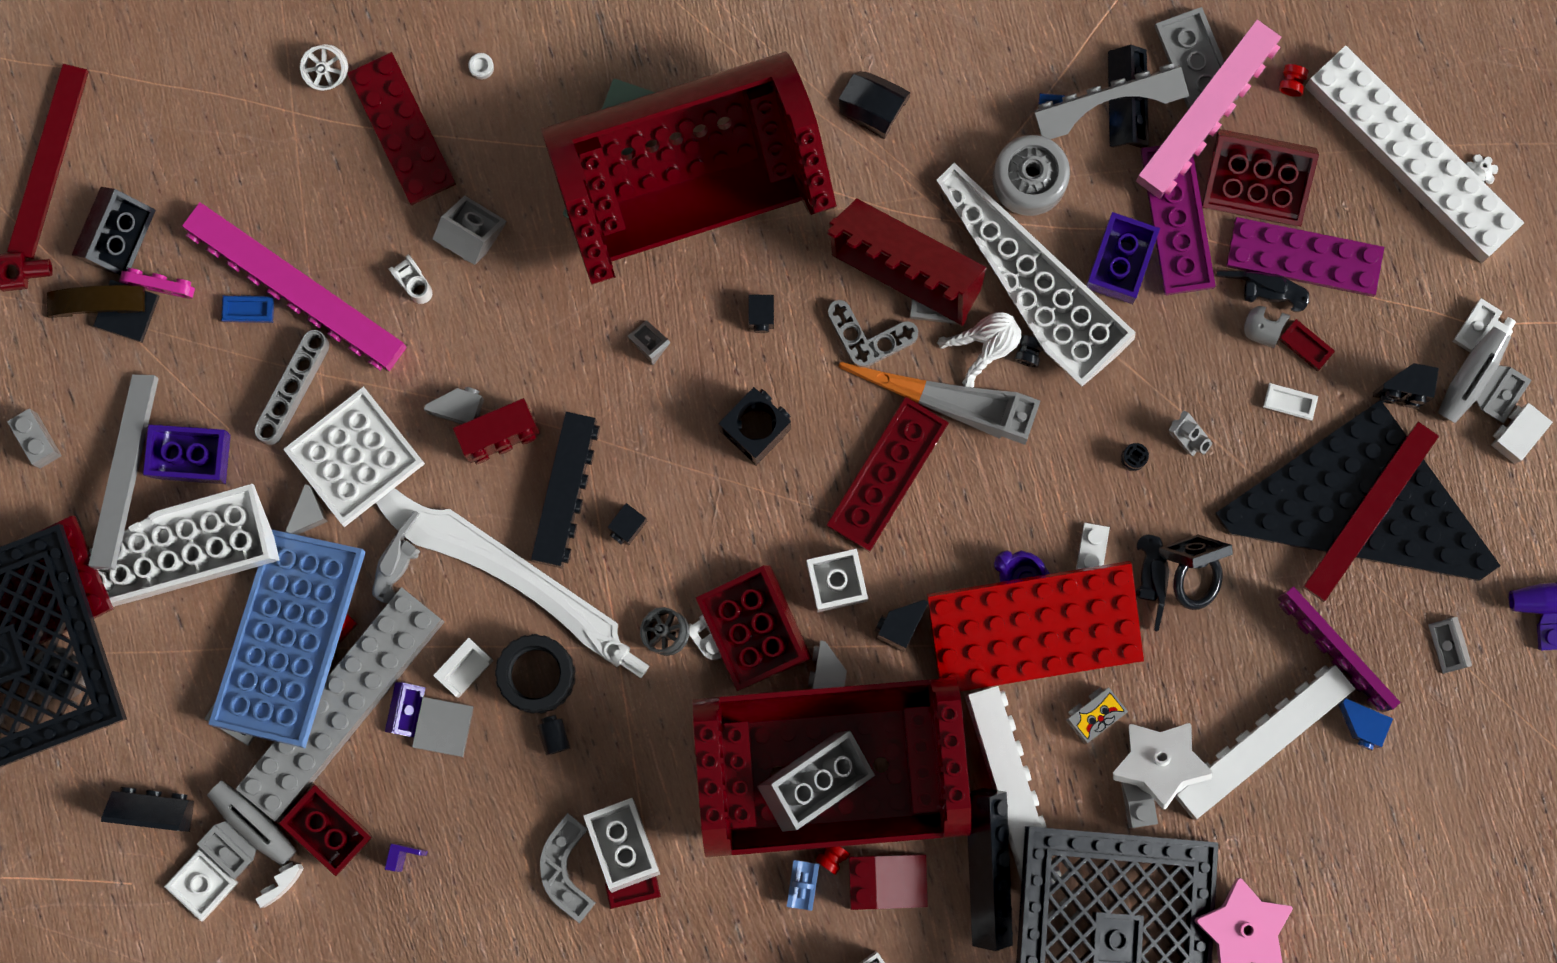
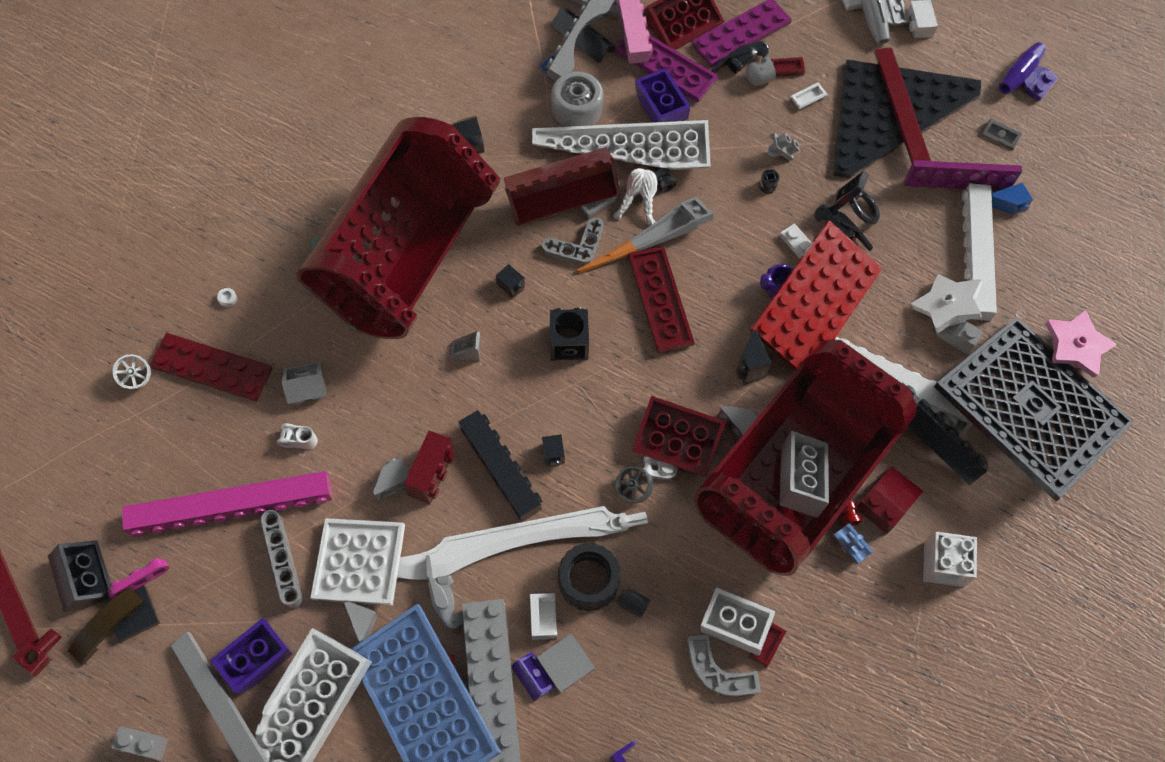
camera: 50 degrees left, 15 degrees down
(247, 309) = (210, 543): blue tile -> none
(837, 580) = (694, 371): white brick -> none
(1096, 715) = (891, 314): brick -> none
(1411, 386) = (855, 38): black slope -> none

